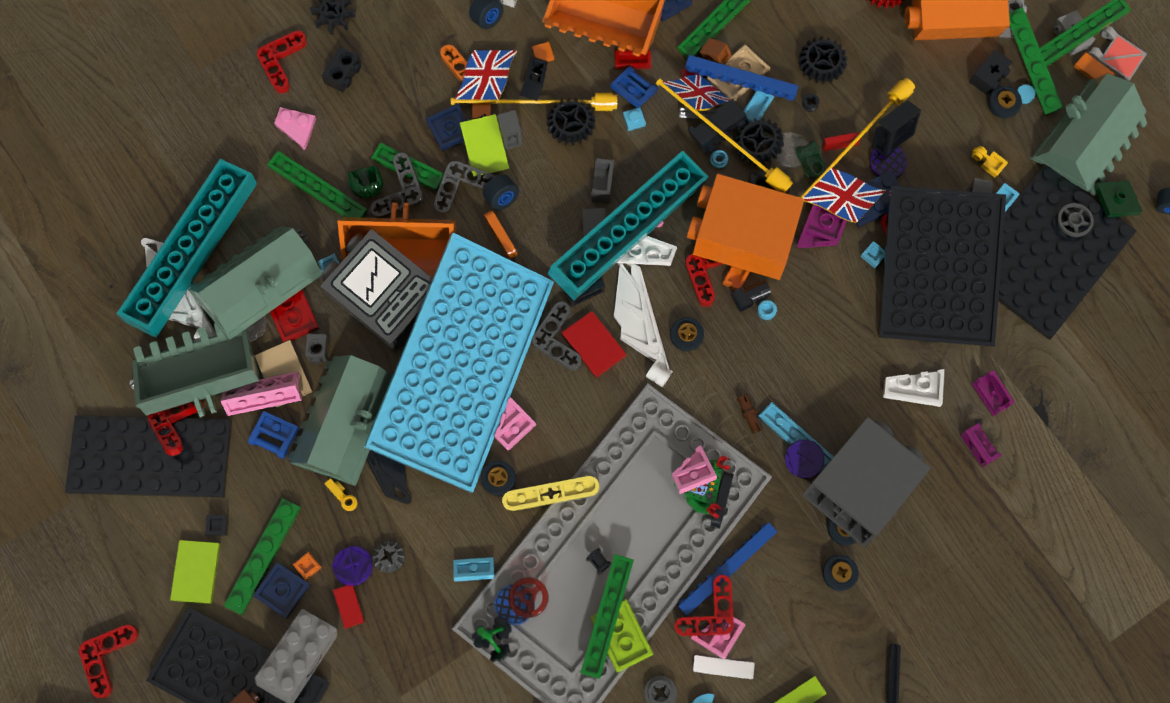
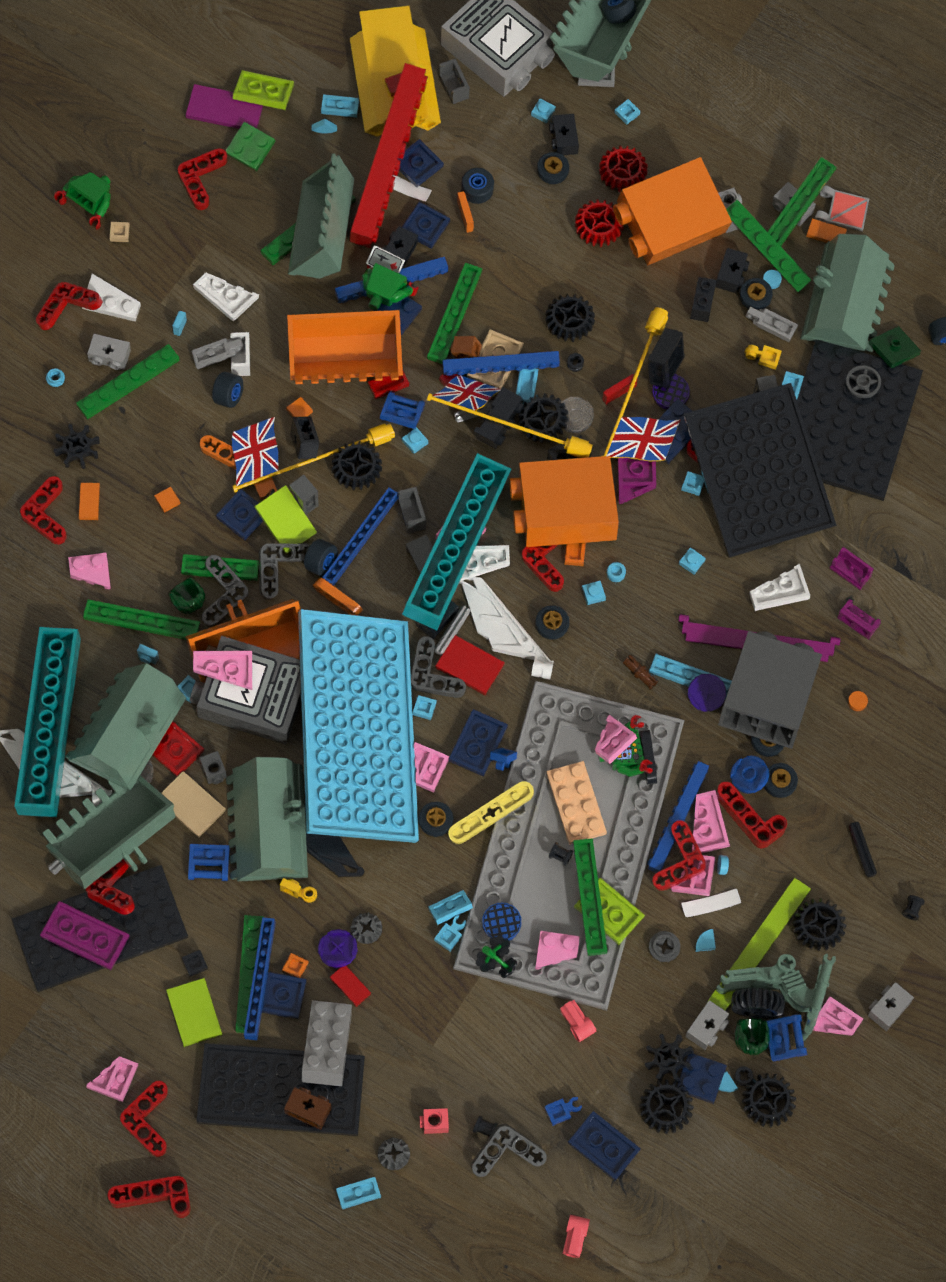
camera: 25 degrees left, 5 degrees down
(93, 607) = (115, 1079): none -> bright pink wing
(128, 458) = (84, 935): none -> magenta tile
(261, 395) = (183, 830): bright pink fence -> none
(264, 567) = (259, 978): none -> blue piece
(307, 221) = (147, 654): none -> medium azure plate
(319, 64) = (89, 501): none -> orange tile
(338, 68) = (110, 498): black brick -> none
(362, 259) = (226, 666): none -> bright pink wing
(390, 89) = (167, 499): none -> orange tile
(460, 596) = (449, 935): none -> medium azure plate
(513, 593) = (511, 903): clear red piece -> none
(534, 368) = (424, 707): none -> medium azure plate
(545, 188) = (361, 536): none -> blue piece
(554, 652) = (556, 948): none -> bright pink wing
(569, 421) = (476, 742): none -> dark blue plate
(585, 444) = (503, 757): none -> blue tile
(591, 305) = (452, 630): none -> light grey axle
(635, 516) = (576, 802): none -> light nougat plate
(719, 154) = (512, 443): medium azure plate -> none
(737, 321) = (593, 592): none -> medium azure plate
(746, 297) = (592, 567): black piece -> none
(750, 634) = (722, 865): none -> medium azure tile
(752, 591) = (708, 823): none -> bright pink wing
(795, 592) = (747, 812): none -> red beam
(811, 158) = (599, 415): clear green piece -> none
(813, 555) = (749, 774): none -> blue tile
(842, 327) = (692, 561): none -> medium azure plate
(855, 417) = (736, 638): none -> magenta piece
(947, 524) = (857, 701): none -> orange tile
(953, 88) = (703, 299): none -> black brick
(1009, 134) = (772, 323): none -> light grey hinge

